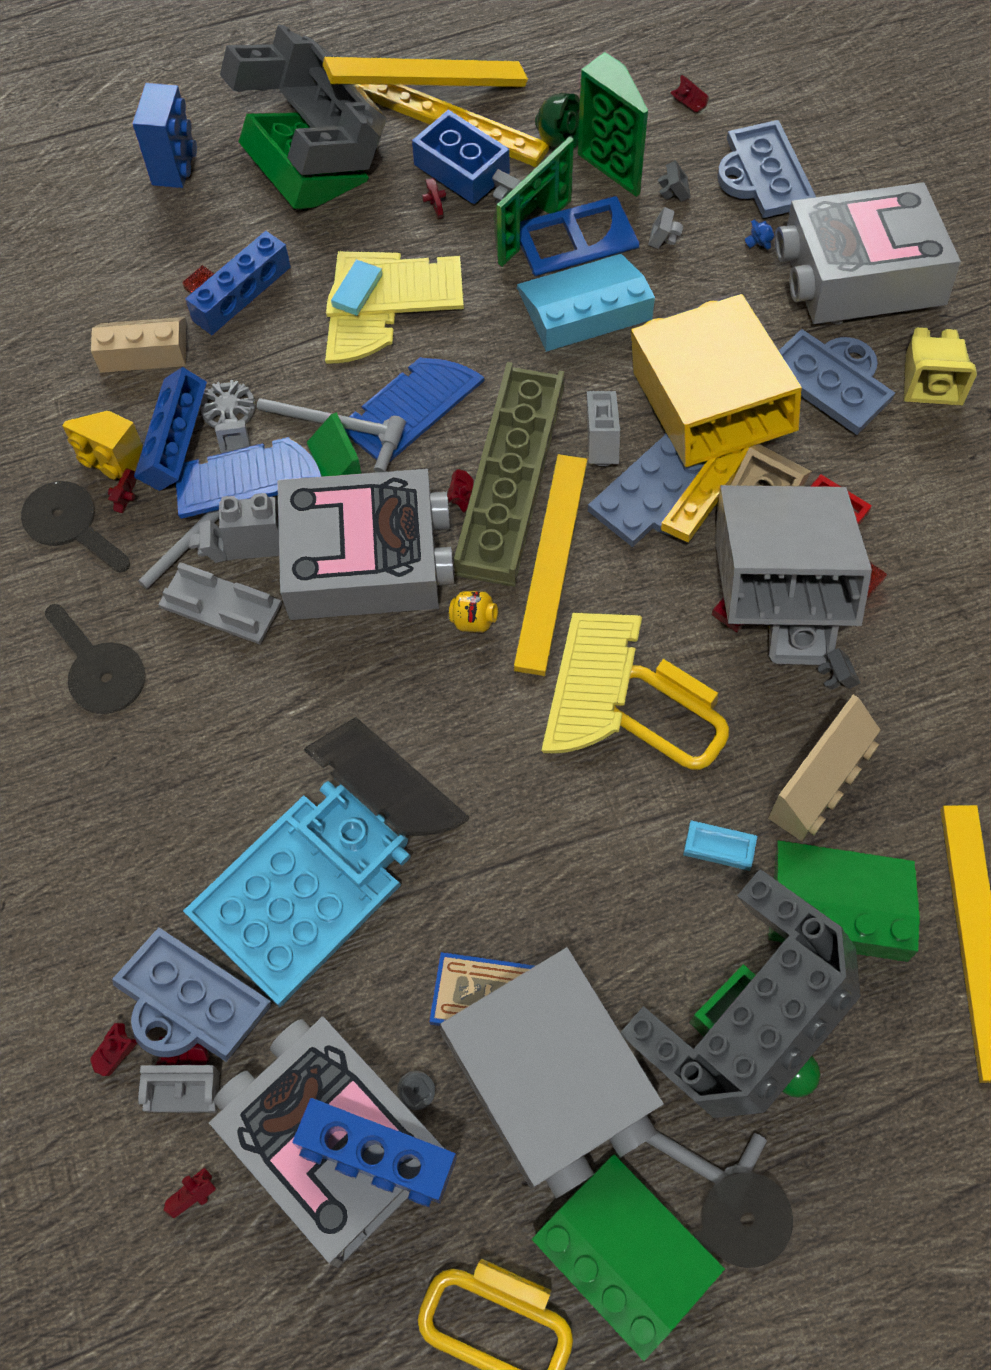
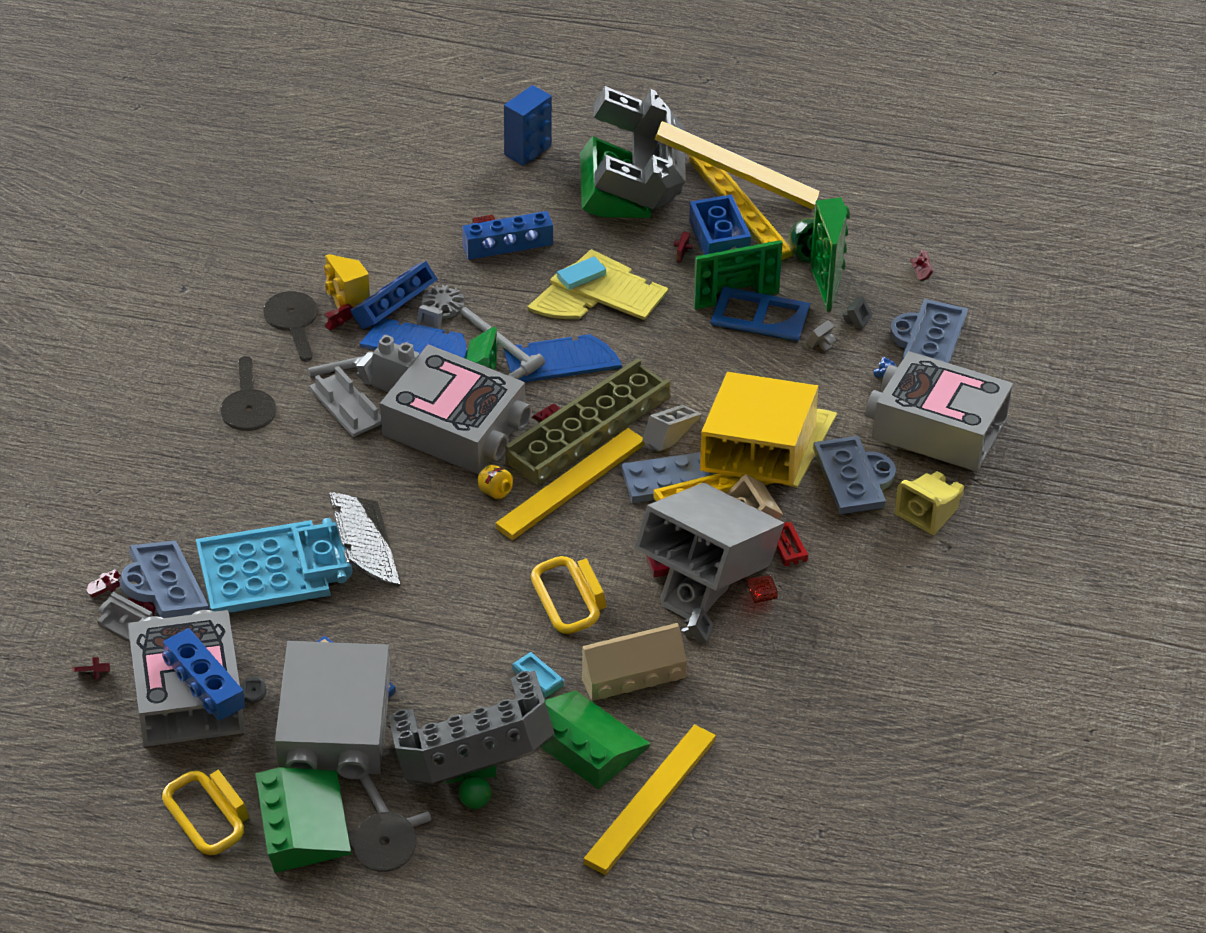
camera: 30 degrees right, 20 degrees down
(139, 344) = (415, 241): tan slope -> none
(587, 301) = (718, 350): medium azure slope -> none
(591, 681) = (536, 553): light yellow piece -> none

